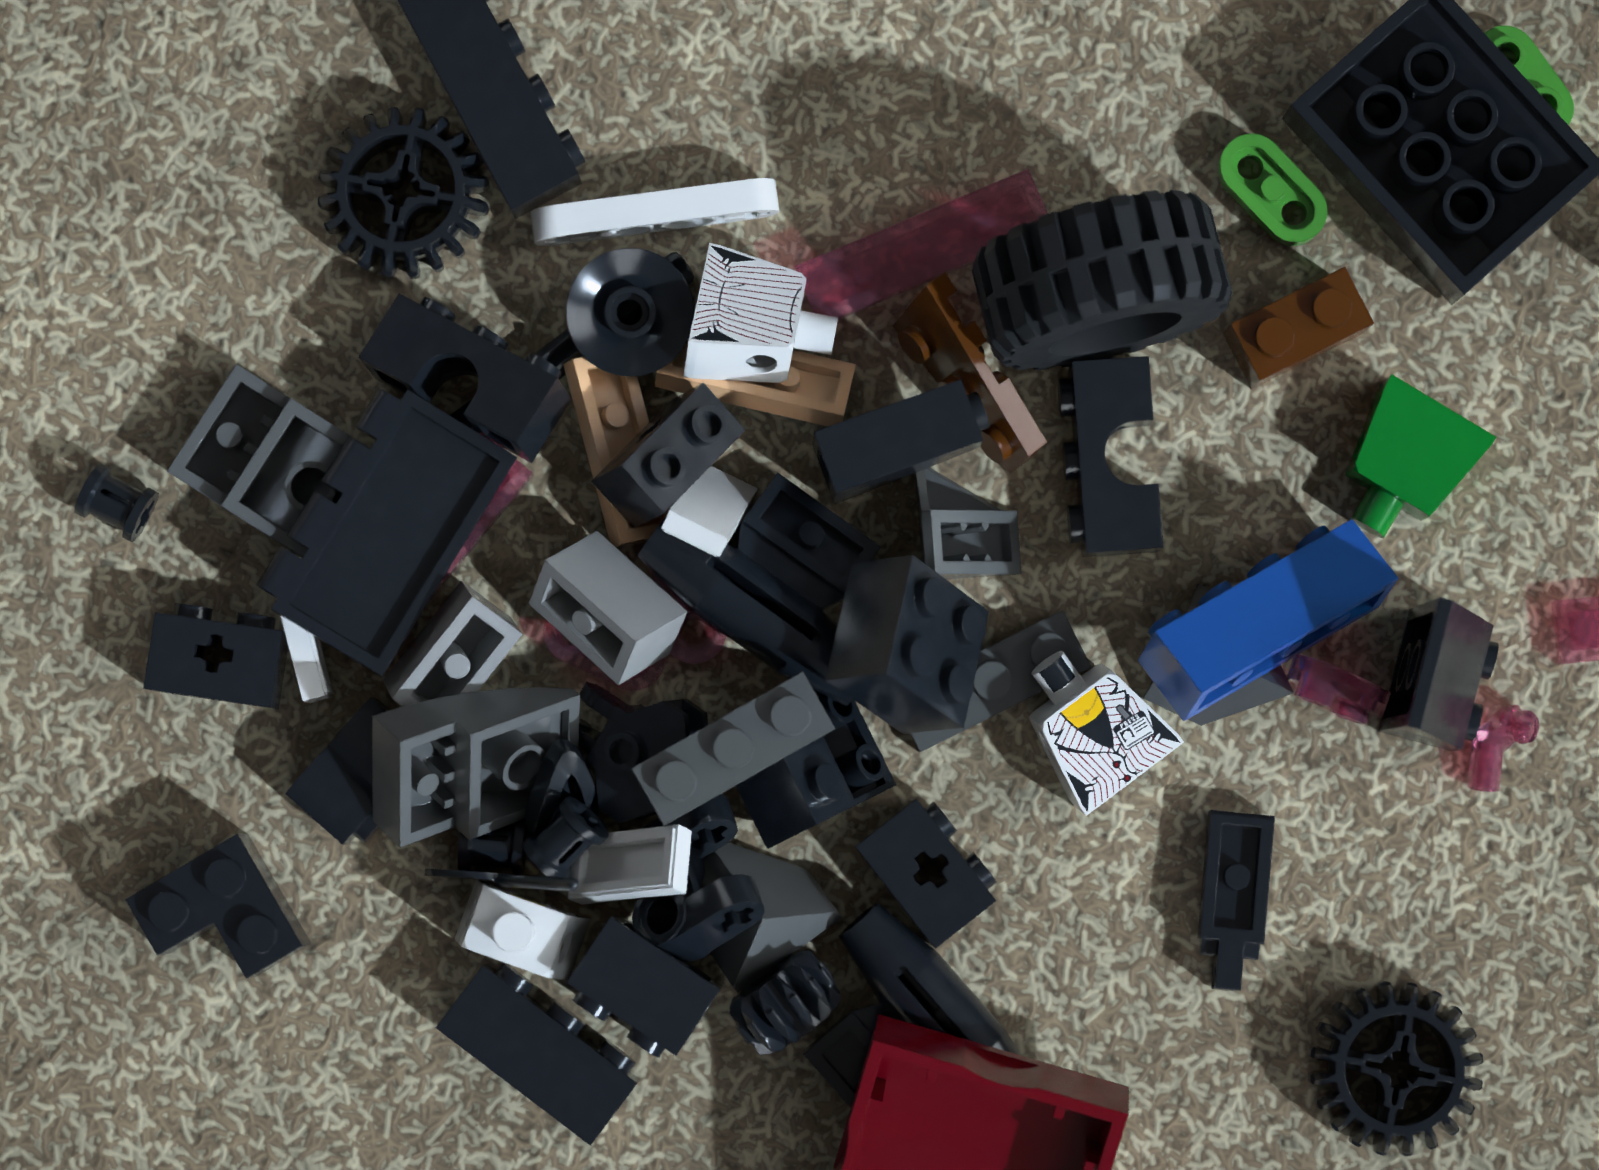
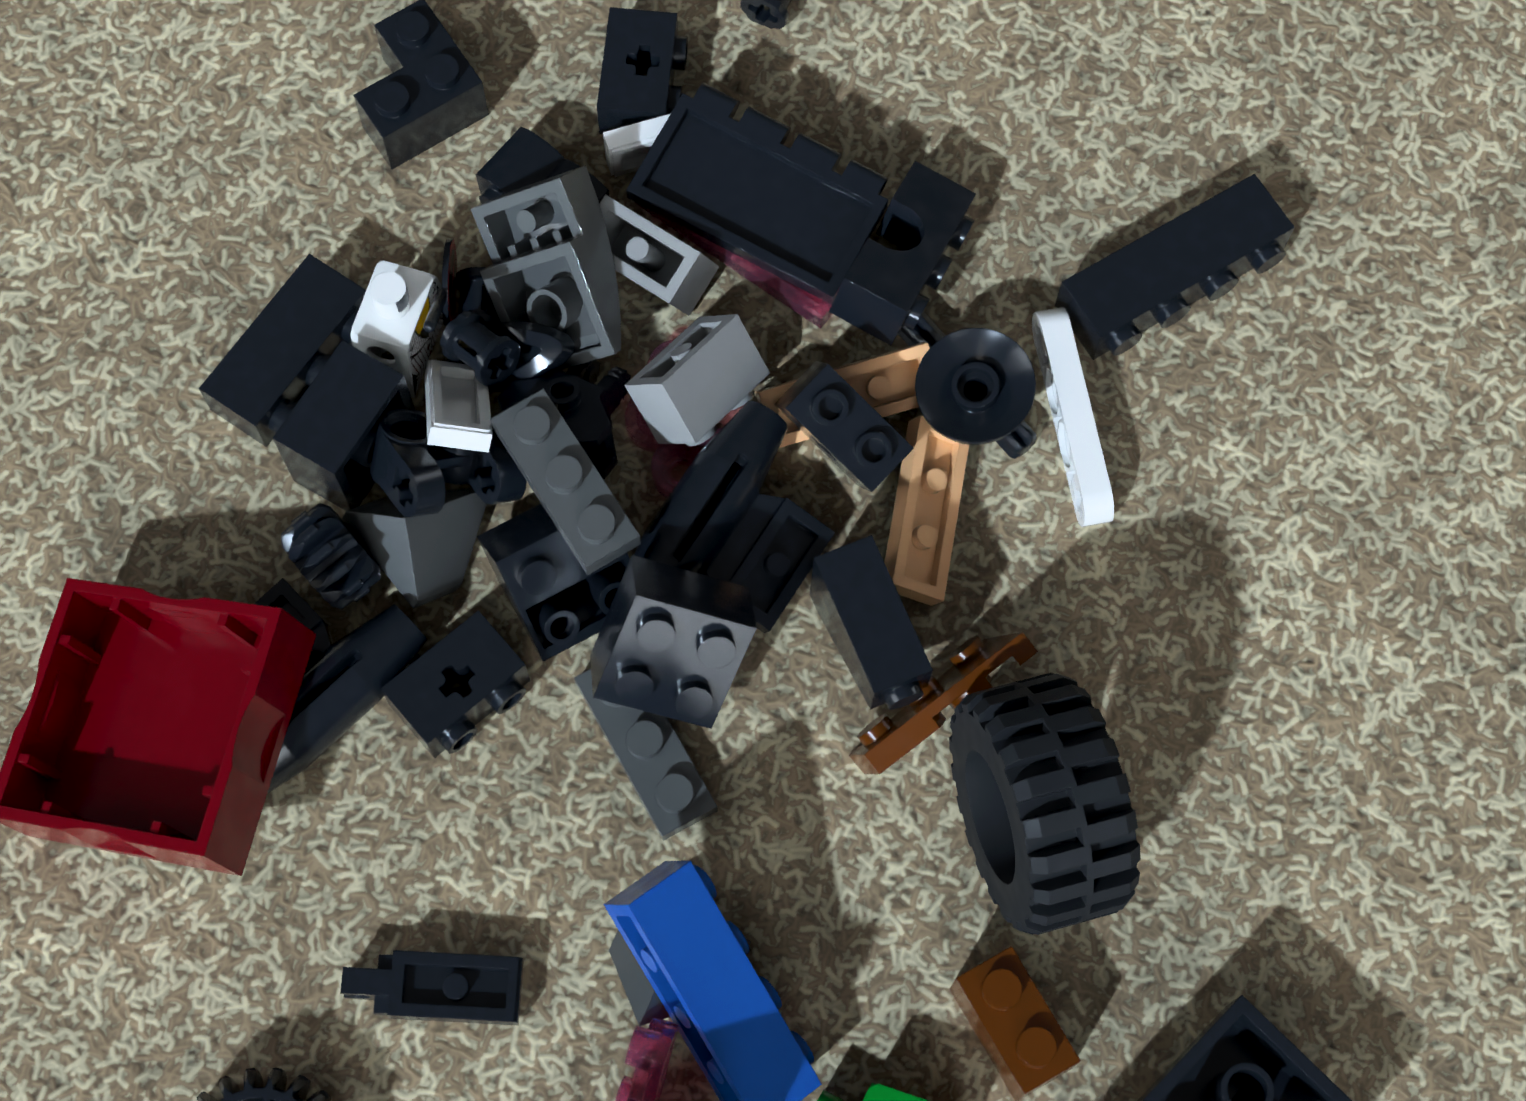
camera: 85 degrees right, 15 degrees down
(260, 455) = (827, 92): dark grey slope -> none
(433, 200) = (1112, 200): black gear -> none
(710, 511) = (795, 463): white tile -> none
(751, 320) = (976, 494): white torso -> none
(918, 247) = (1036, 606): clear pink plate -> none
(963, 532) = (789, 703): dark grey slope -> none
(1096, 731) = (597, 838): torso -> none
(1109, 512) = (923, 832): black arch -> none
(1276, 186) = (1152, 997): bright green plate -> none

